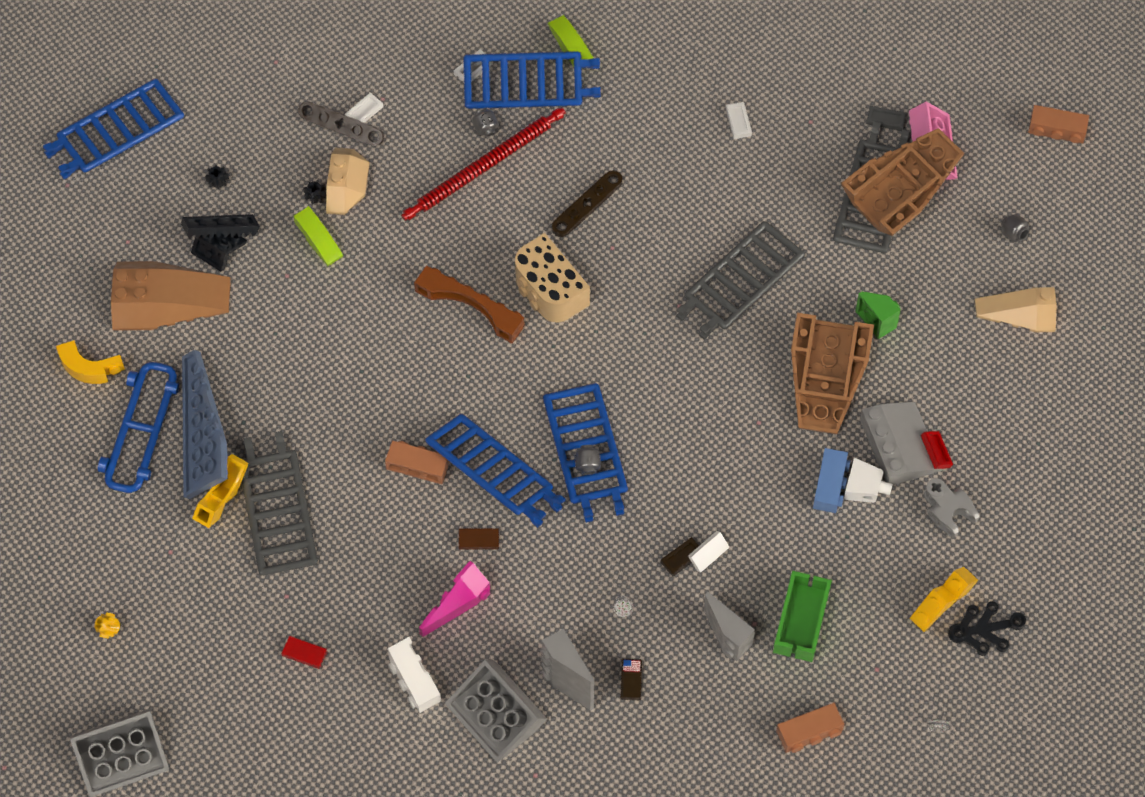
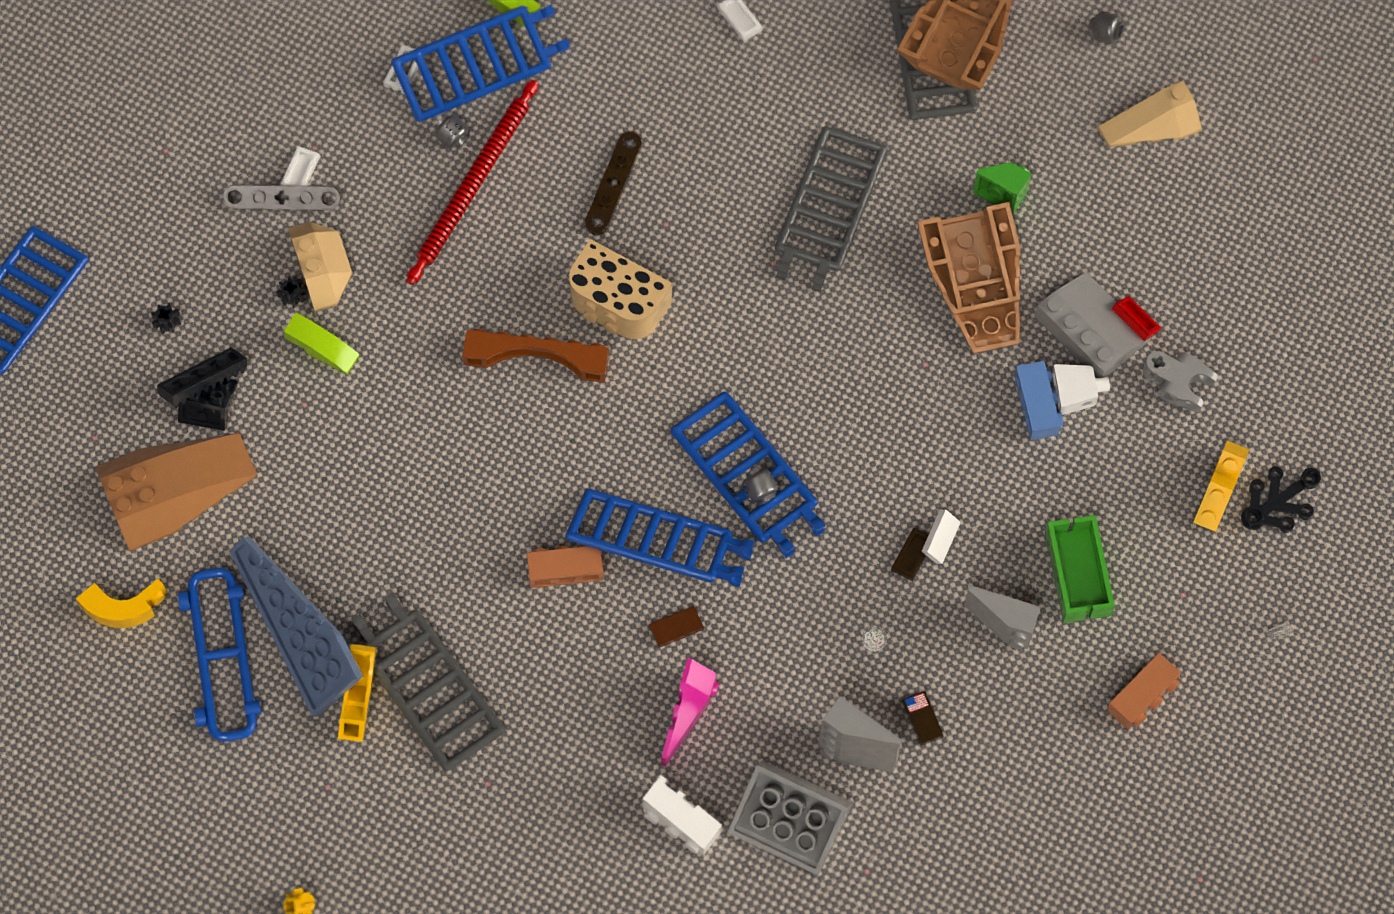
camera: 25 degrees left, 5 degrees up
(304, 652) = (540, 840): red tile -> none

